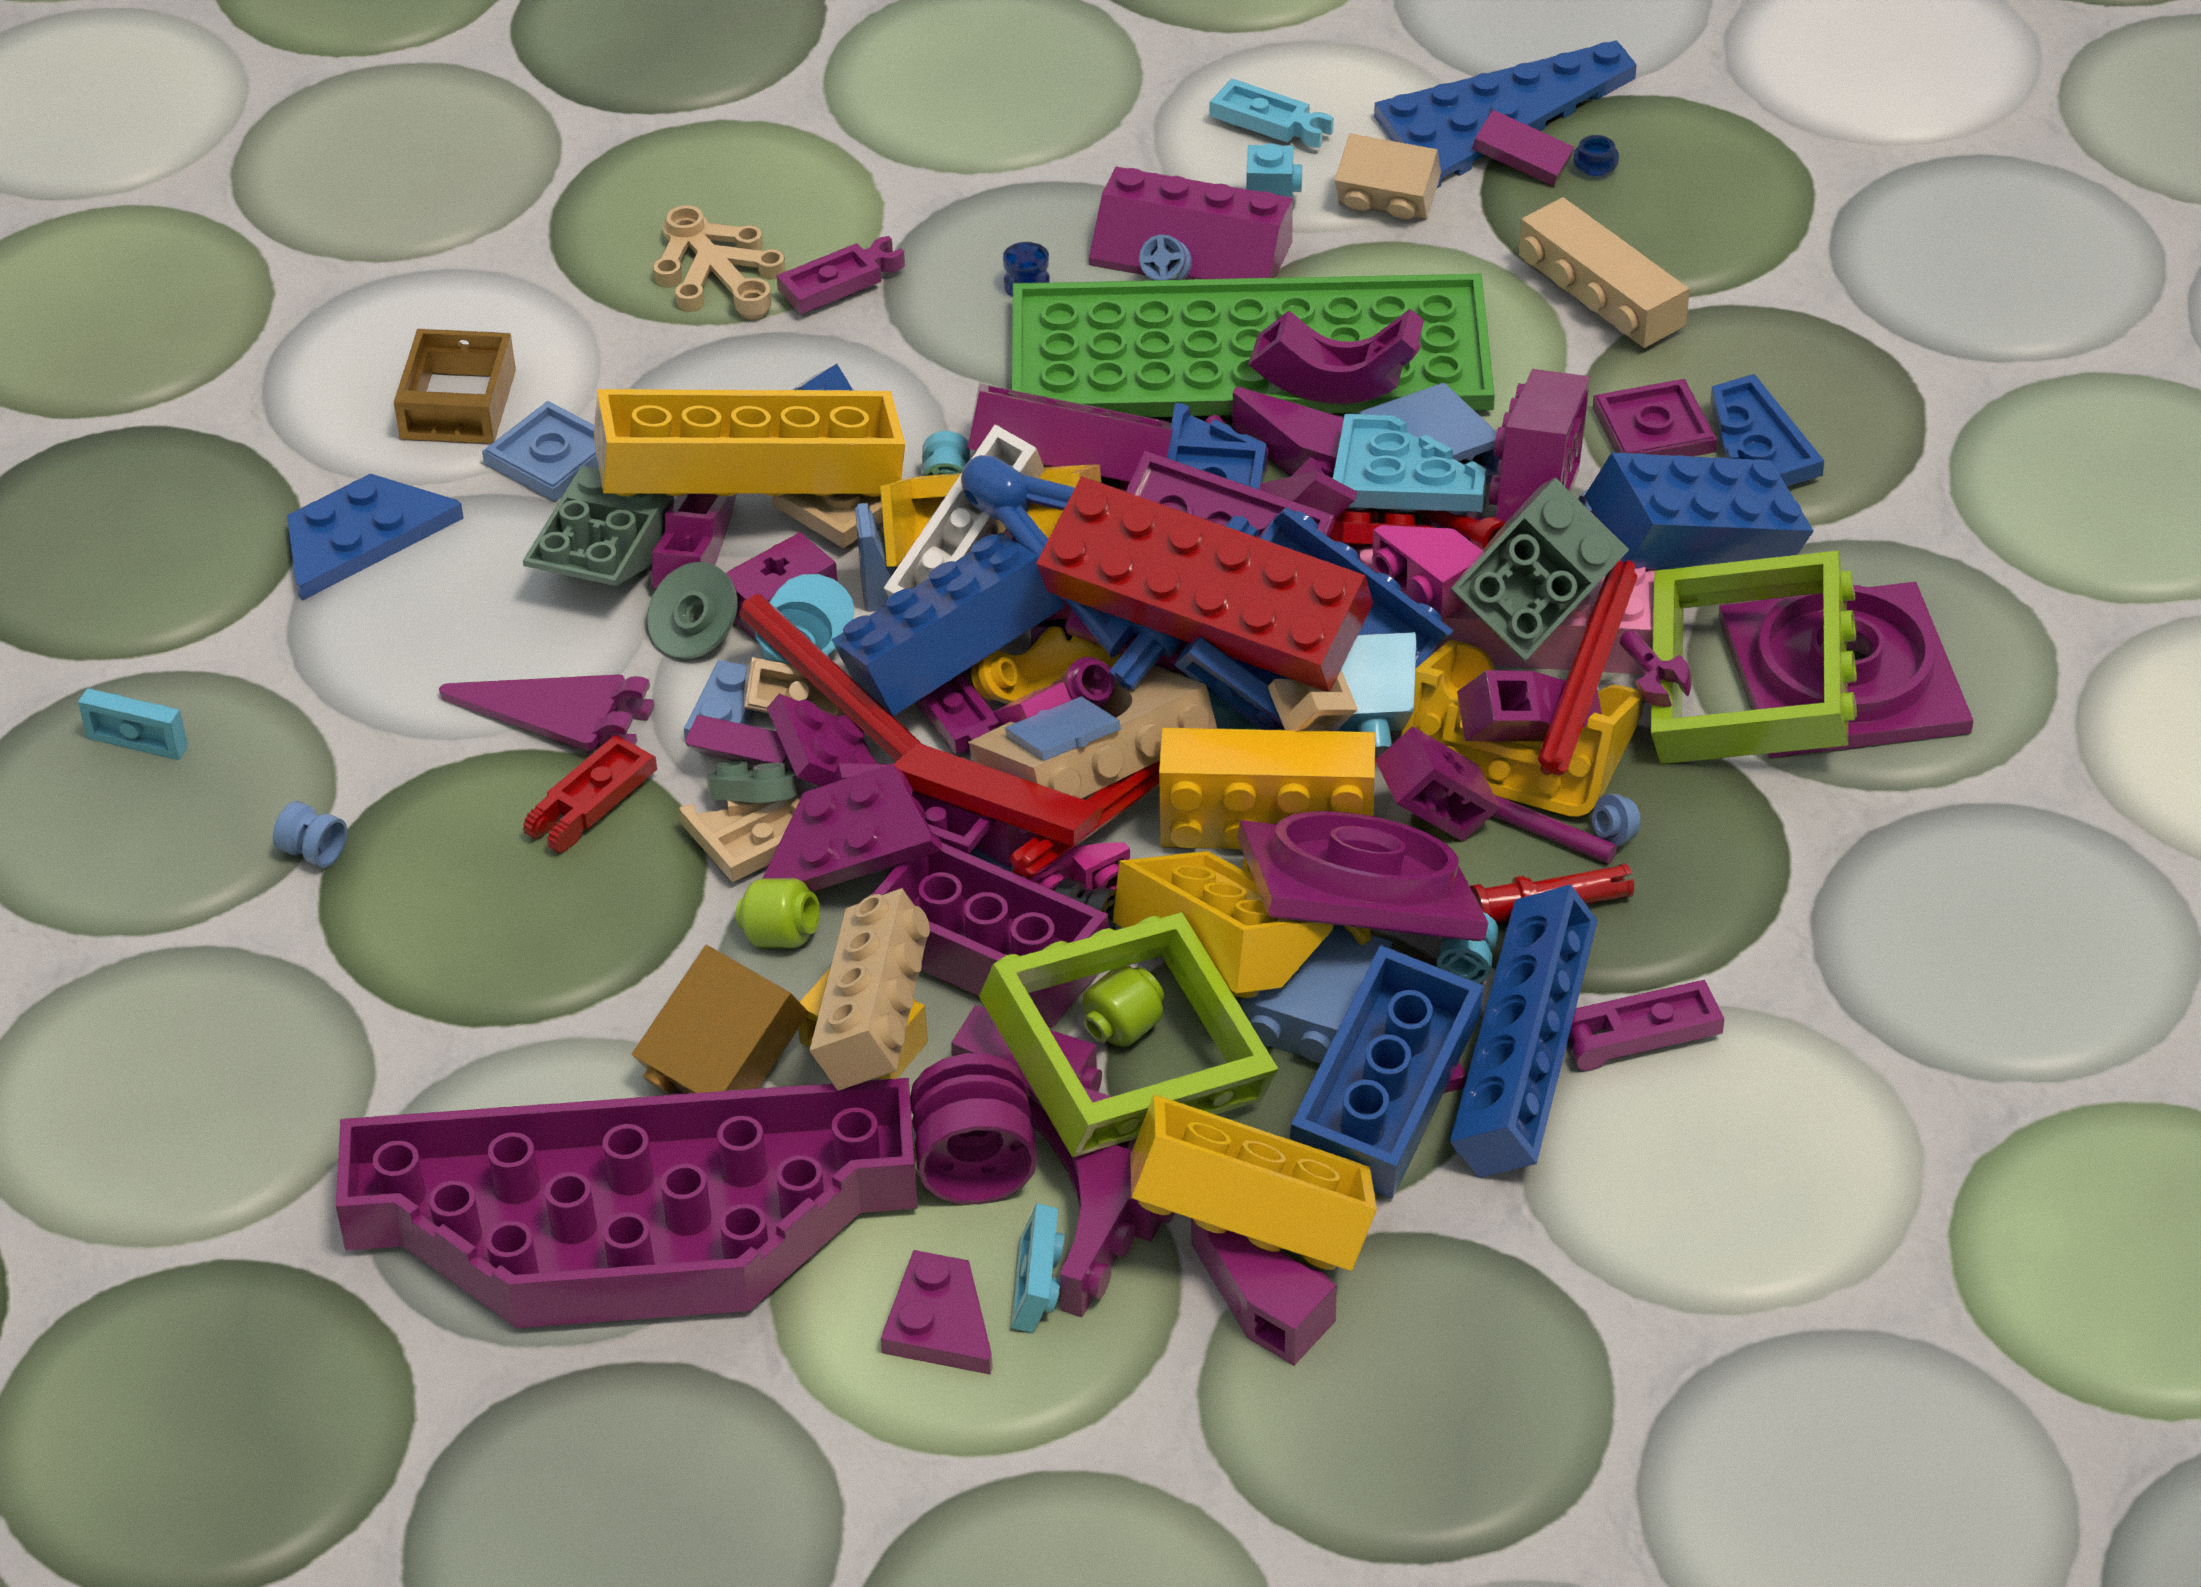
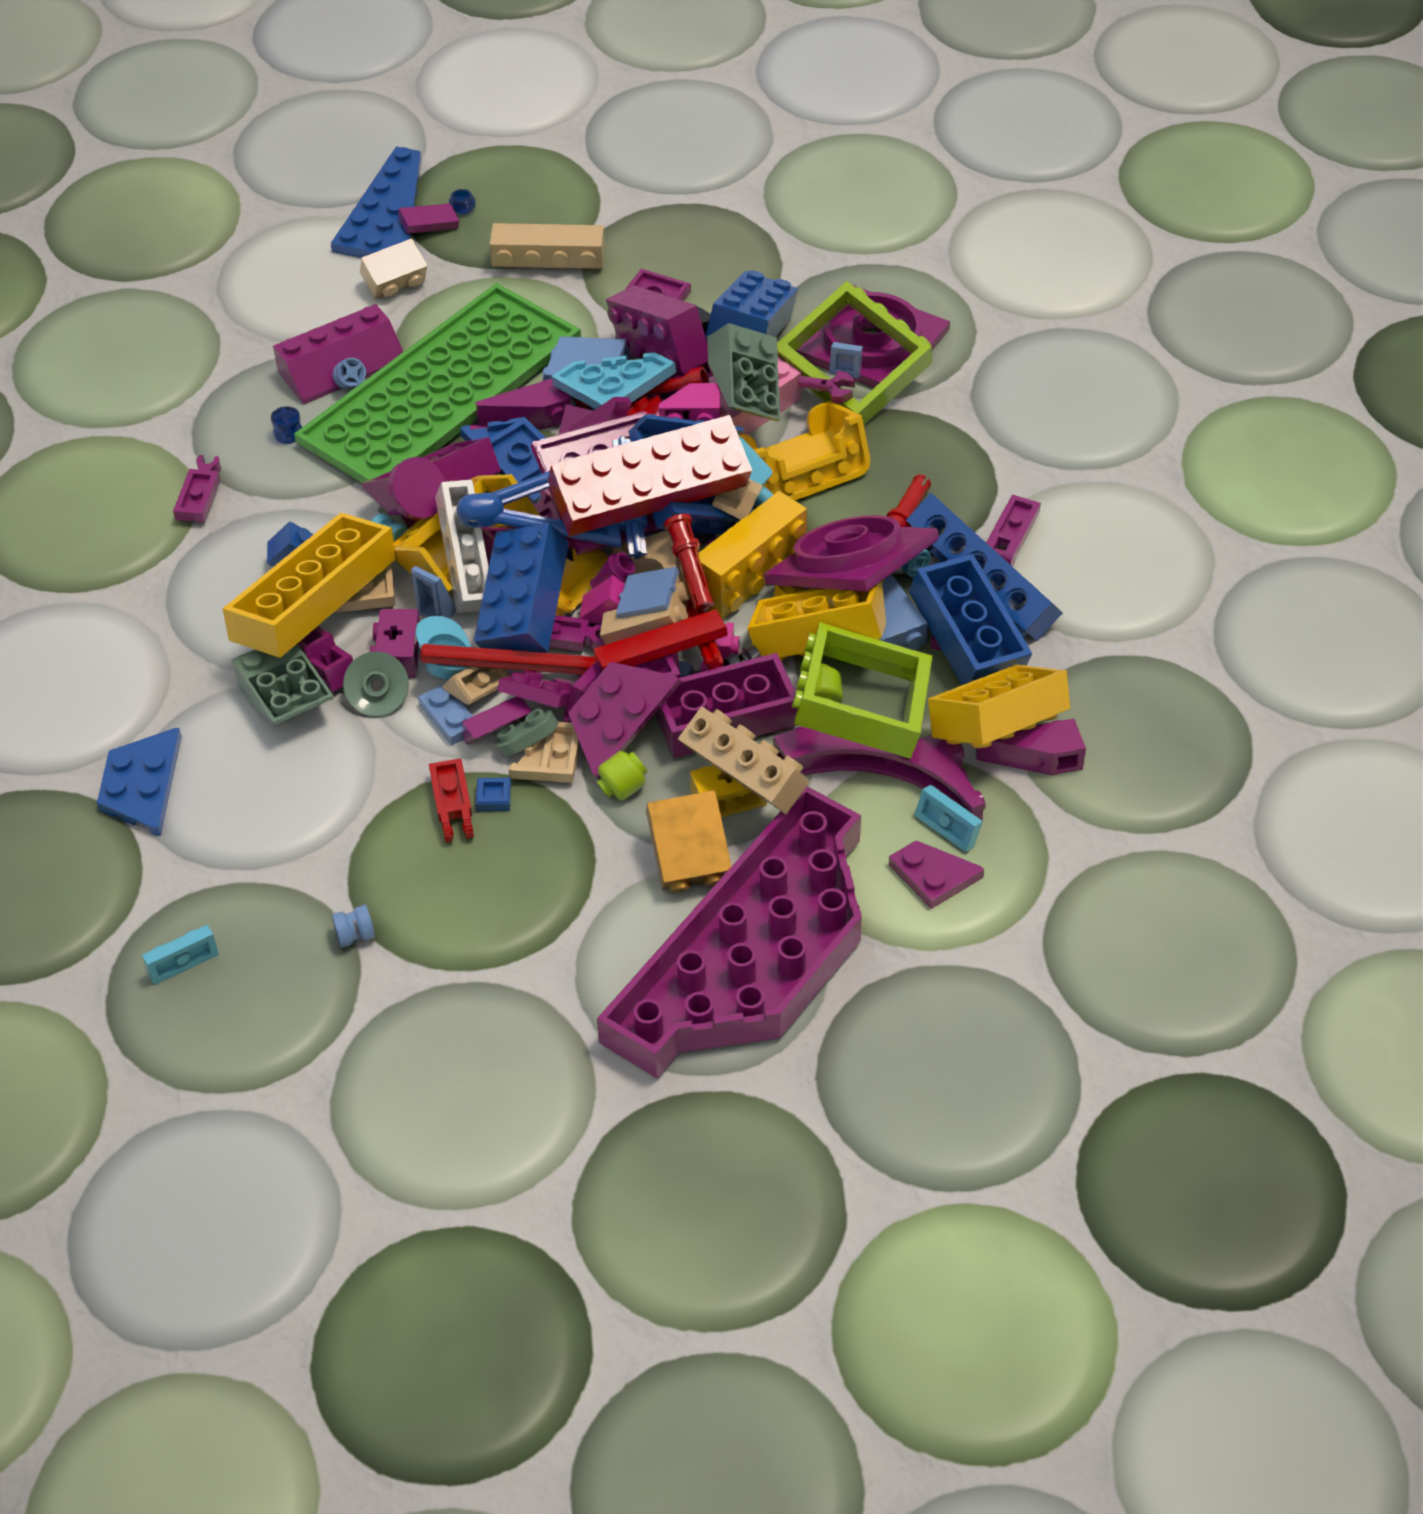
camera: 50 degrees left, 5 degrees up
(448, 414) = (101, 698): pearl gold window -> none
(544, 450) = (180, 672): medium blue tile -> none
(560, 708) = (374, 775): magenta flag -> none
(641, 825) = (493, 794): none -> blue tile
(689, 228) = (89, 524): tan plant -> none
(973, 1128) = (854, 780): magenta wheel -> none
(999, 402) = (414, 487): none -> magenta tile
(1157, 707) = (686, 549): none -> red pin
(1269, 113) = (290, 279): medium azure plate -> none
(1273, 170) = (339, 302): medium azure brick -> none
(1335, 370) = (512, 361): magenta arch -> none
(1437, 784) = (816, 497): magenta brick -> none
(1511, 706) = (804, 443): magenta slope -> none
(1555, 830) = (856, 488): magenta bar -> none
(1587, 669) = (821, 410): red axle -> none
(1616, 819) = (885, 454): medium blue plate -> none
(1708, 648) = (846, 359): none -> medium blue tile
(1758, 428) = (703, 270): blue wing -> none

